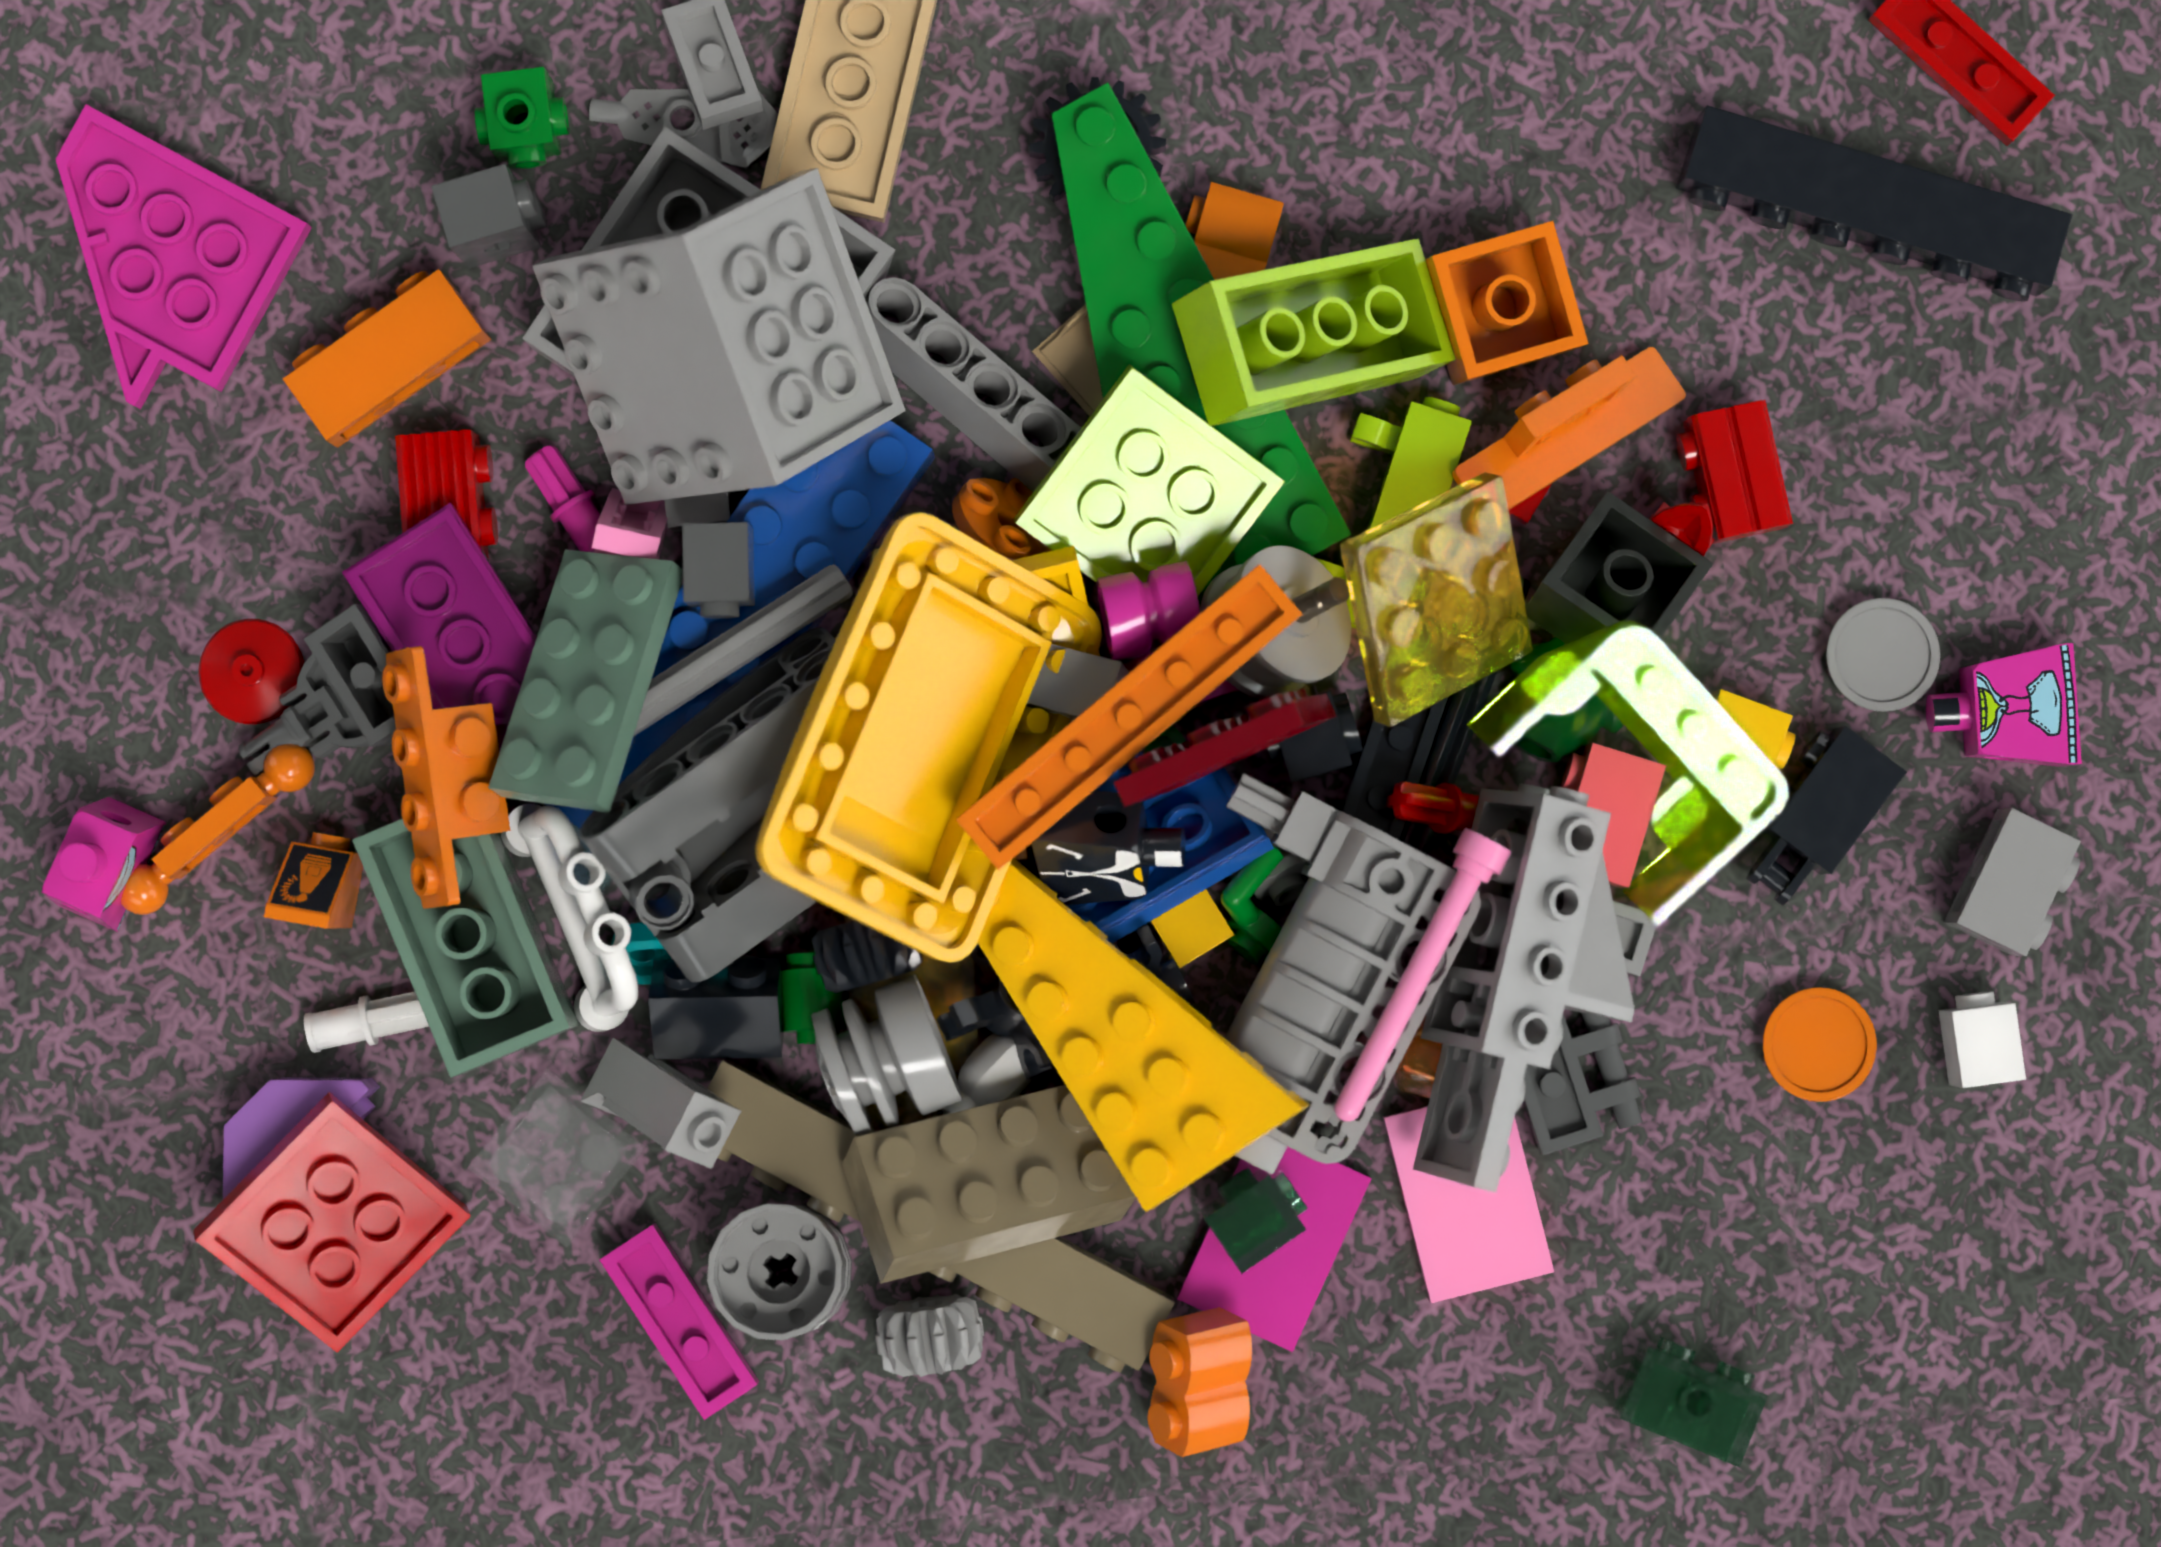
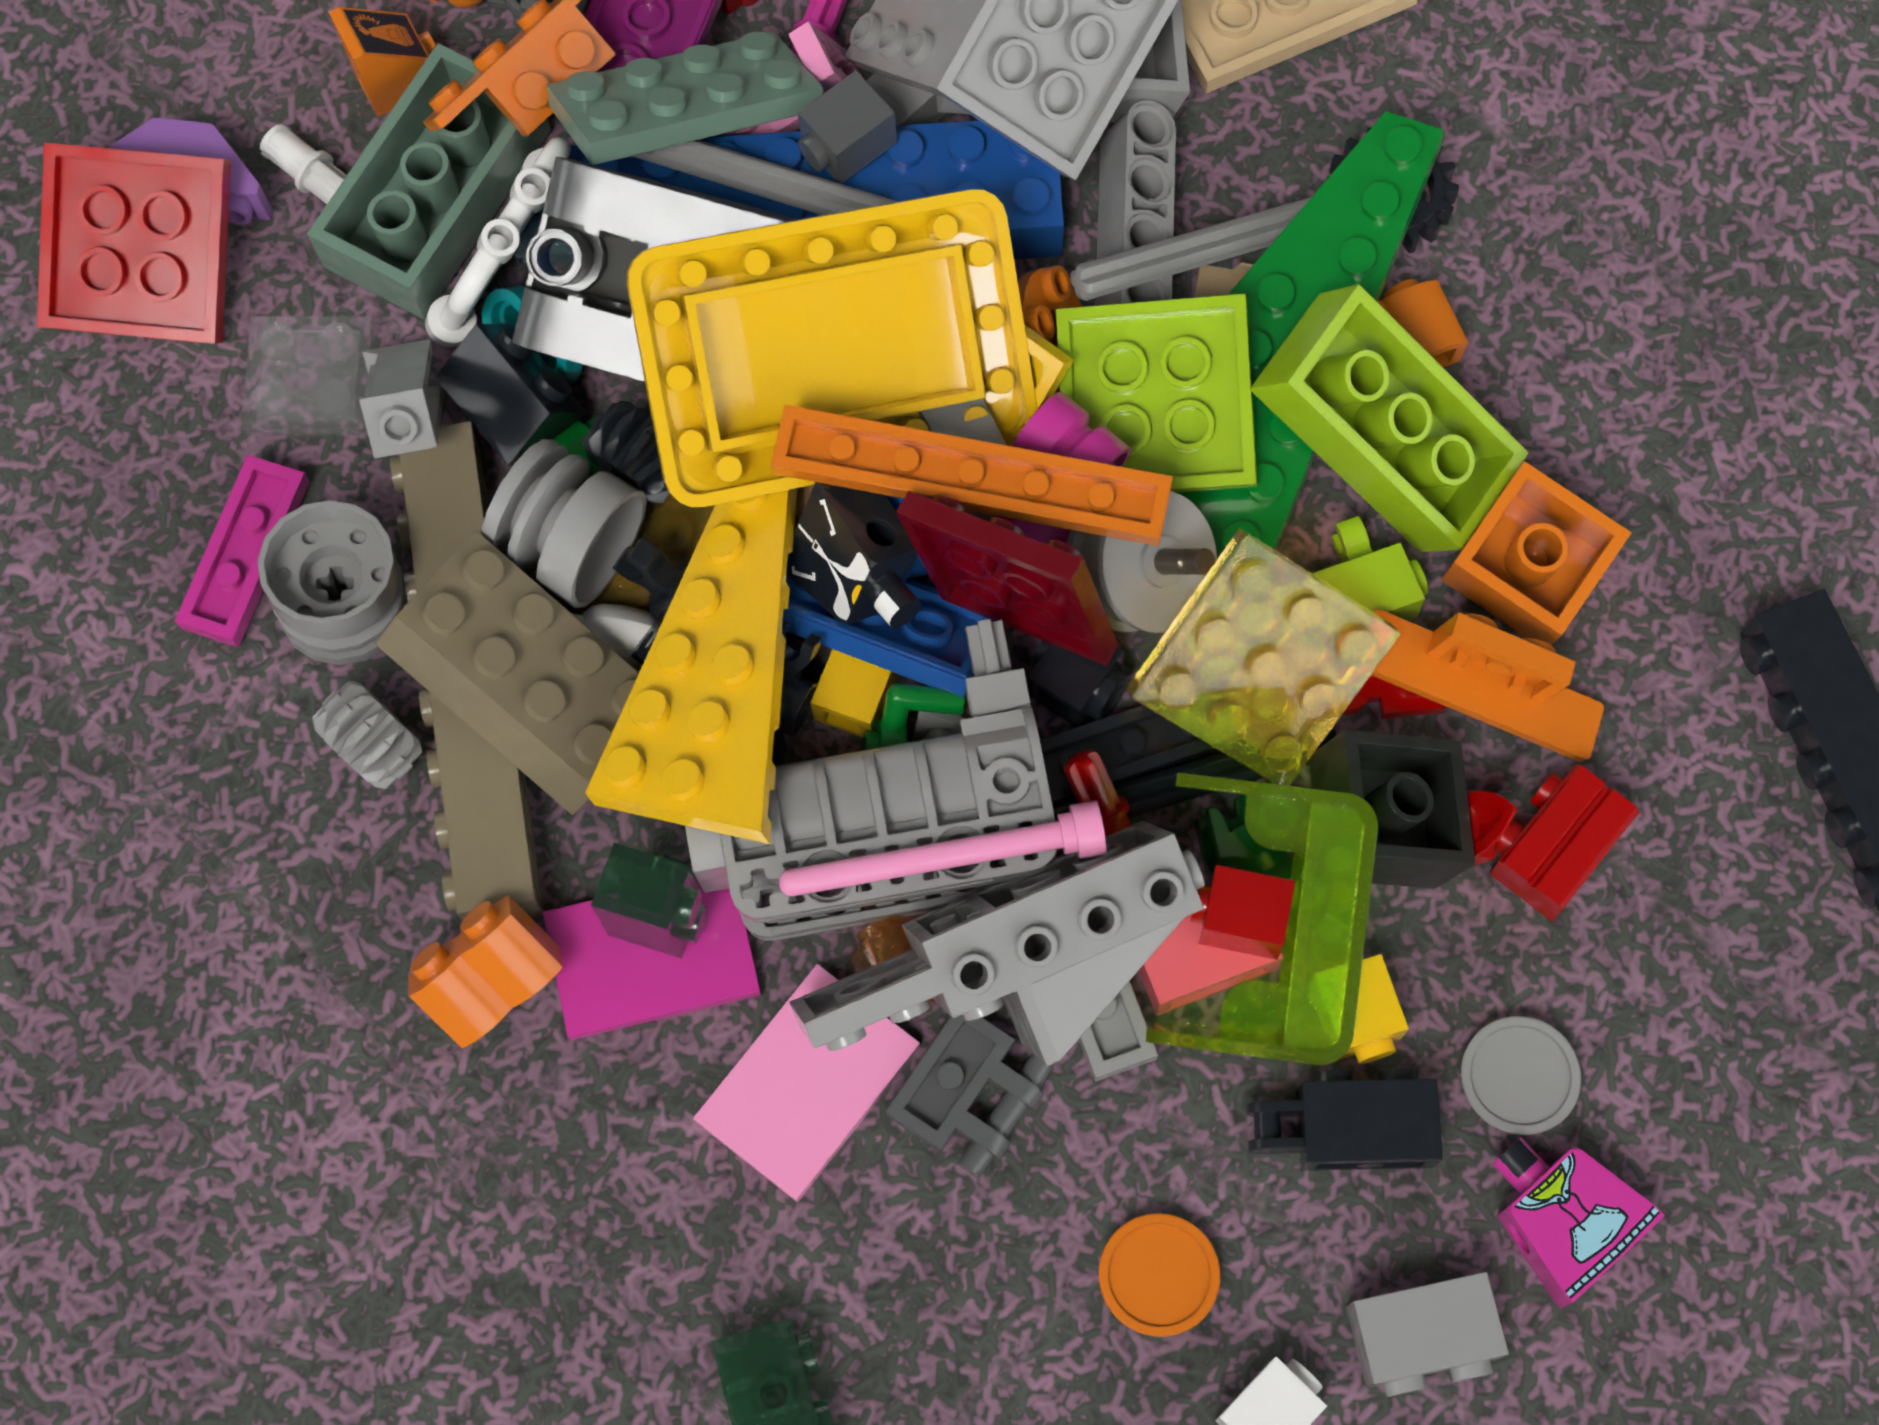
camera: 55 degrees right, 15 degrees down
(1036, 356) = (1182, 252): none -> light grey axle
(1619, 770) = (1245, 912): none -> red brick

